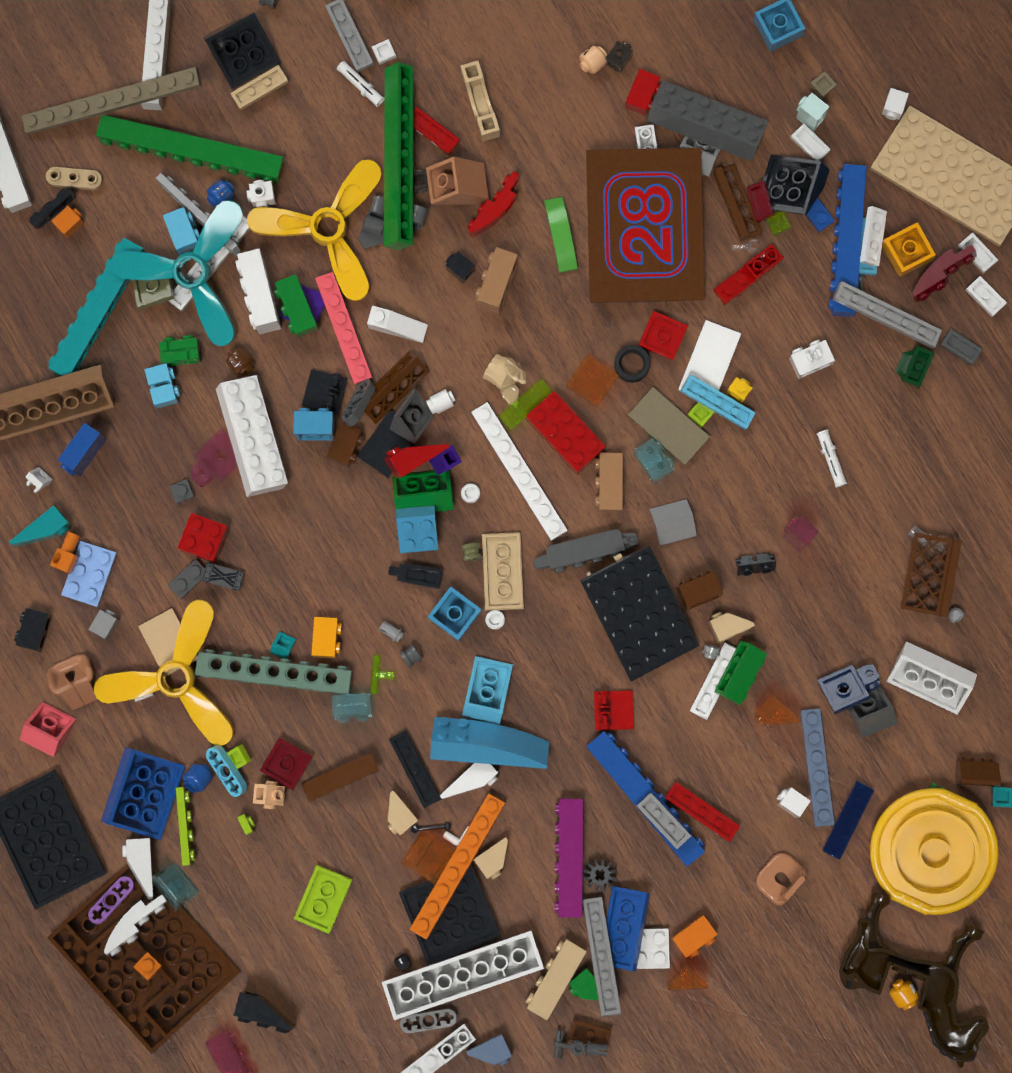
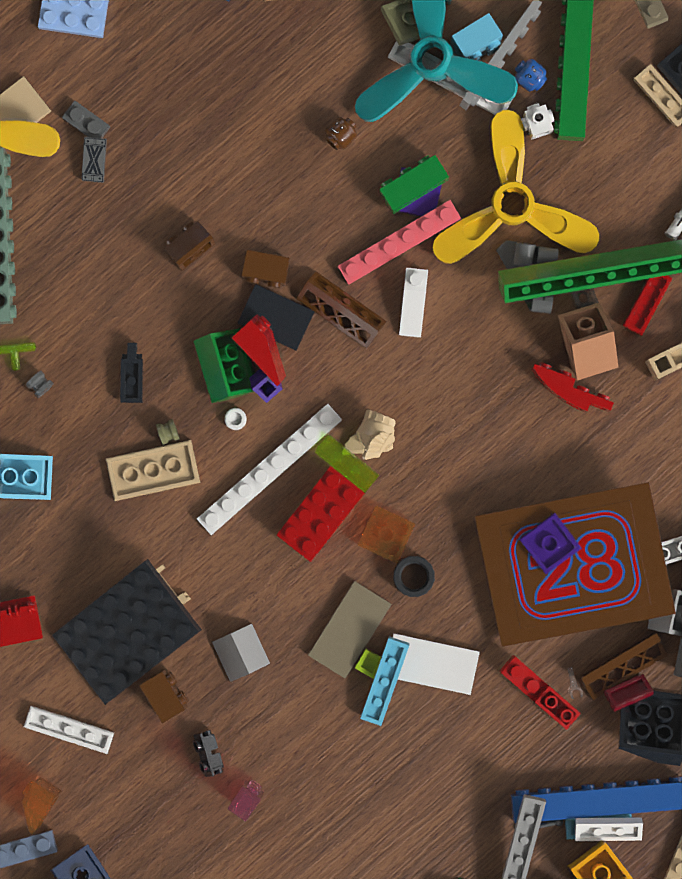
camera: 75 degrees right, 5 degrees up
(104, 624) = (19, 38): light grey brick -> none
(162, 388) = (288, 55): medium azure piece -> none
(180, 351) = (341, 64): green brick -> none
(181, 491) = (183, 96): dark grey plate -> none
(203, 538) = (133, 129): red brick -> none
(208, 462) = (216, 126): clear pink plate -> none
(251, 436) = (256, 161): white brick -> none
(258, 291) = (423, 139): white brick -> none
(282, 645) = (29, 240): teal slope -> none
(313, 506) = (189, 245): none -> reddish brown slope
(314, 425) = (279, 229): dark azure brick -> none
(324, 391) = (323, 234): black hinge -> none
(325, 637) = (44, 286): light orange brick -> none
(358, 402) = (304, 270): dark grey beam -> none
(391, 631) = (64, 358): light grey pin -> none
(411, 417) = (307, 338): dark grey slope -> none
(417, 529) = (181, 366): dark azure brick -> none
(441, 401) = (333, 367): white brick -> none
(454, 614) = (93, 425): dark azure brick -> none
(460, 266) = (493, 361): black brick -> none
(495, 619) = (97, 471): white tile -> none
(496, 280) = (481, 406): medium nougat brick -> none
(561, 234) = (551, 469): bright green slope -> none
(584, 550) = (191, 558): dark grey hinge -> none
(609, 482) = (272, 573): medium nougat brick -> none
(623, 241) = (550, 543): none -> dark purple tile
(653, 460) = (306, 619): clear light blue brick -> none
(663, 335) = (452, 606): red plate -> none
(711, 651) = (100, 719): light grey plate -> none
(728, 625) = (132, 734): tan slope -> none
(739, 389) = (404, 704): yellow brick -> none
(740, 673) = (80, 756): green brick -> none
(778, 223) = (607, 717): clear neon green tile -> none
(811, 359) = (453, 779): white brick -> none
(819, 216) = (623, 763): blue plate -> none
(828, 450) = (343, 821): white pin -> none

